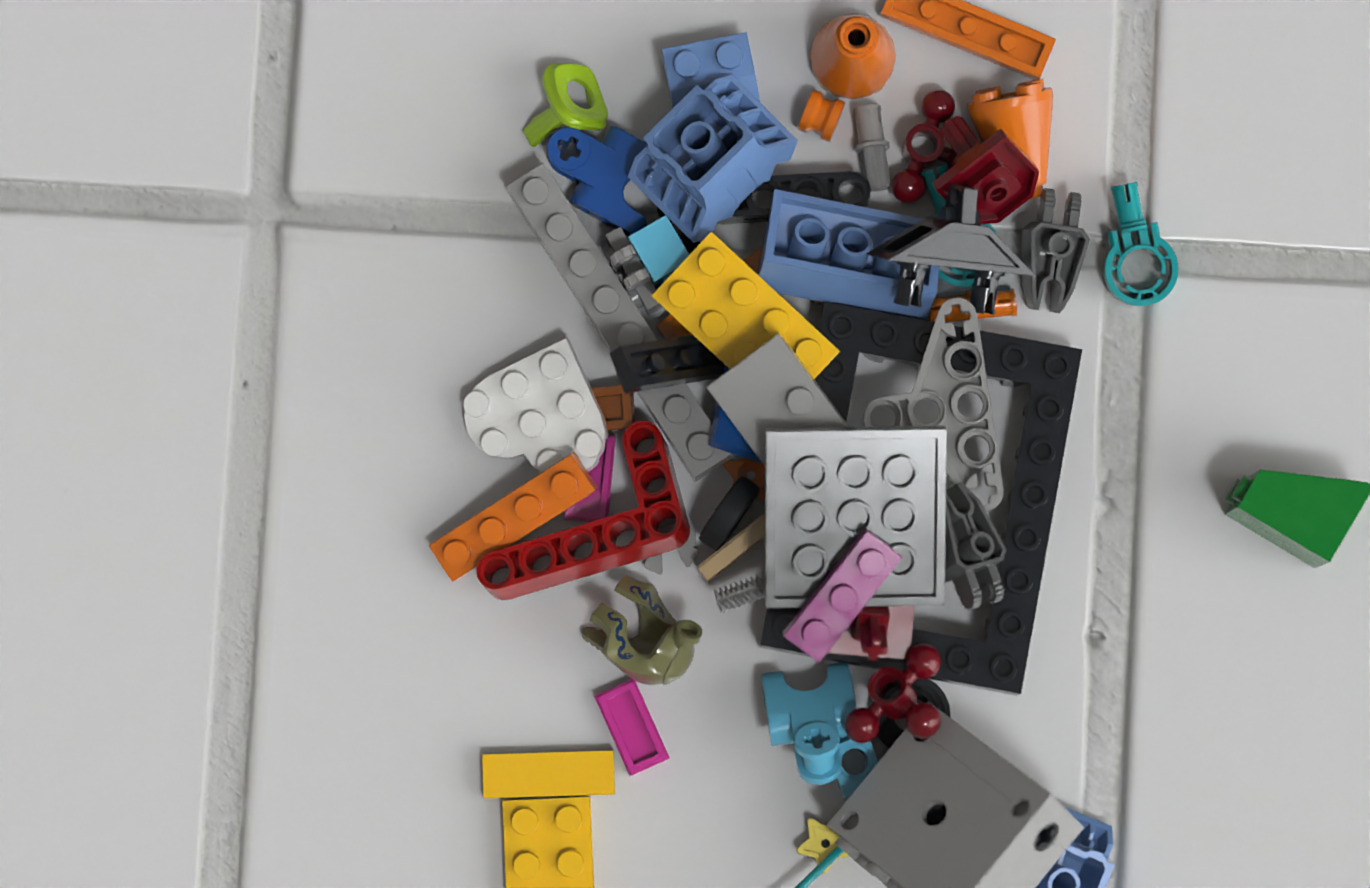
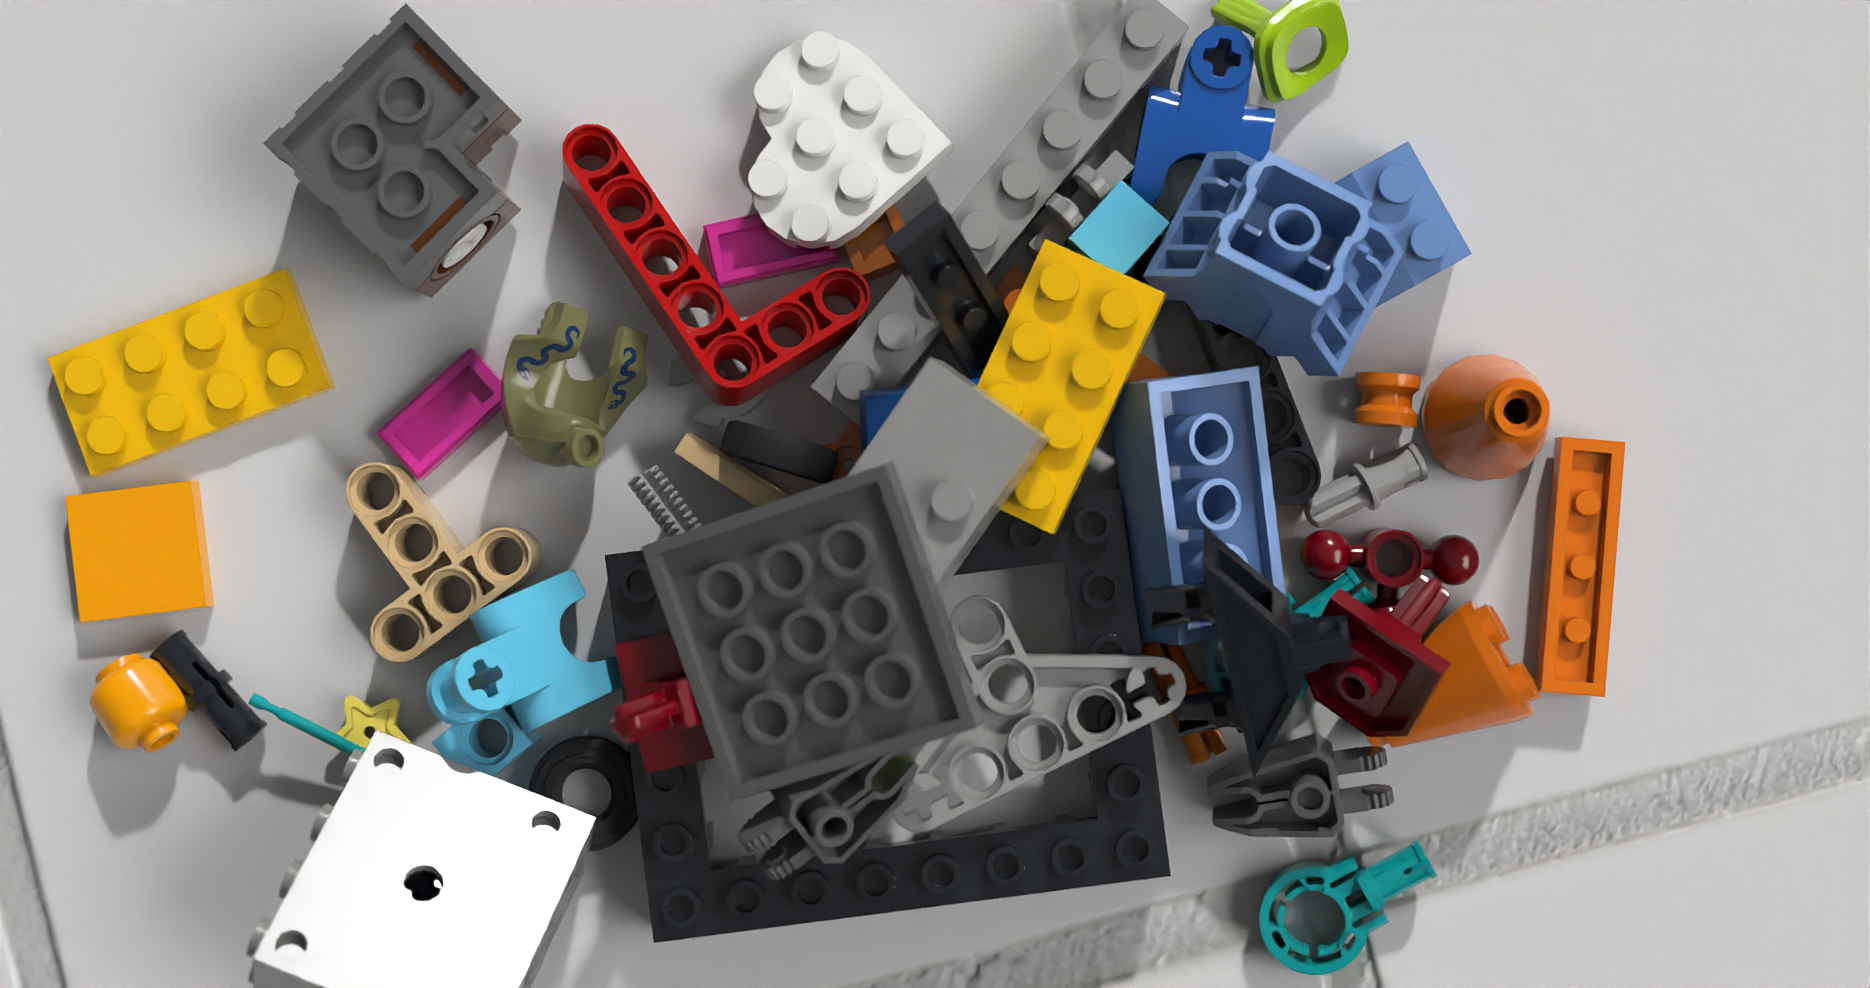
camera: 70 degrees right, 5 degrees up
(456, 693) = (400, 152): none -> dark grey piece
(513, 516) = (679, 153): orange plate -> none
(548, 774) = (344, 320): yellow tile -> none
(734, 767) = (428, 577): none -> tan beam
(842, 595) = (693, 651): plate -> none
(920, 719) = (560, 818): dark red piece -> none

